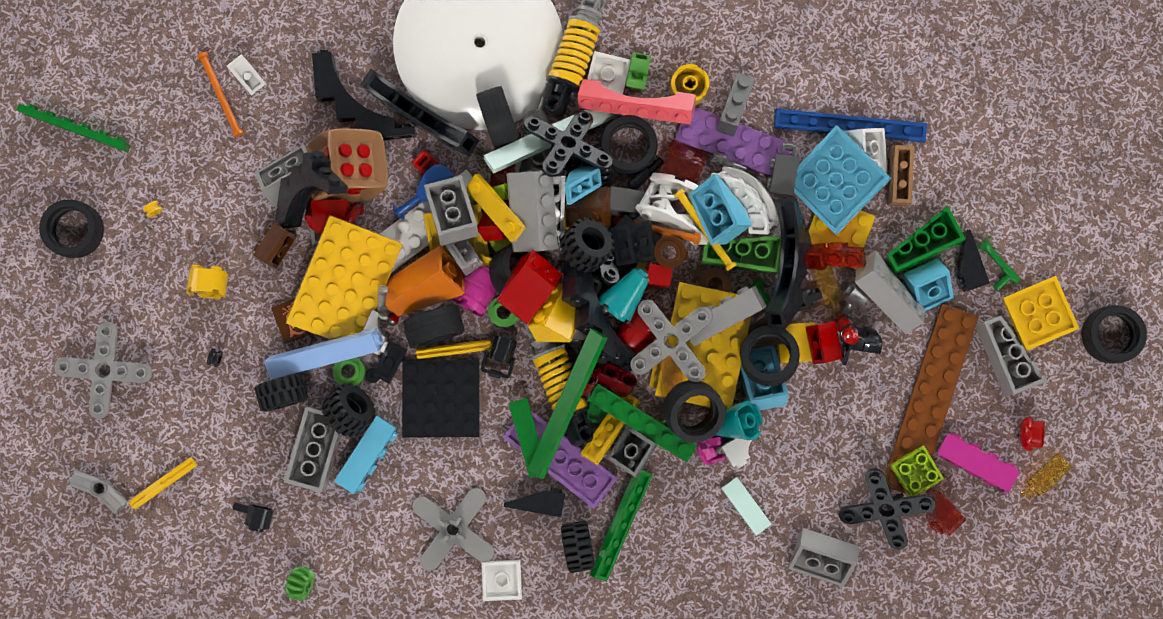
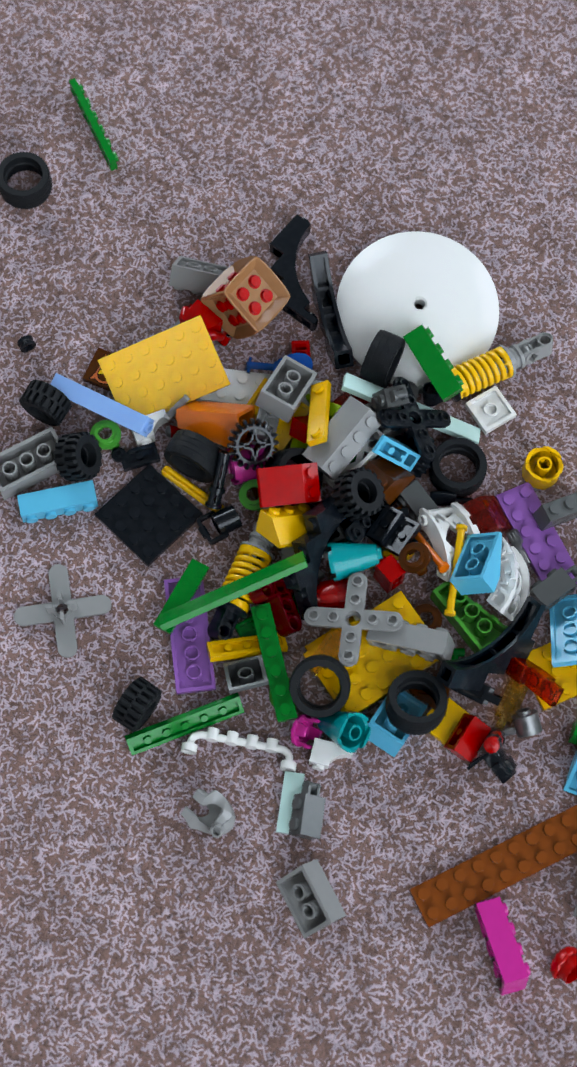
camera: 40 degrees right, 15 degrees down
(152, 209) = (88, 216): yellow bush -> none
(203, 57) = (222, 157): orange bar -> none
(207, 282) = (74, 290): yellow brick -> none
(246, 74) = (239, 190): white slope -> none
(274, 245) = (143, 310): reddish brown slope -> none
(301, 185) = (197, 282): black arch -> none
(461, 282) = (254, 459): none -> black gear
(474, 334) = (215, 489): none -> black pin
(501, 580) = (58, 680): white tile -> none
(538, 147) = (390, 398): none -> dark grey brick
(540, 84) = (433, 363): none -> green wedge
(545, 502) = (144, 651): black slope -> none
(638, 71) = (514, 426): bright green brick -> none
(664, 500) = (232, 739): none -> white bar
(674, 108) = (516, 469): coral arch -> none
(711, 568) = (220, 816): none -> light grey piece
(766, 502) = (307, 812): none -> brick
(889, 293) = (552, 747): light grey wedge -> none
(897, 507) = (384, 899): black piece -> none
(916, 471) = (446, 903): lime tile -> none
(945, 517) = (436, 954): clear red slope -> none
(1046, 476) = (549, 1012): clear yellow hinge -> none

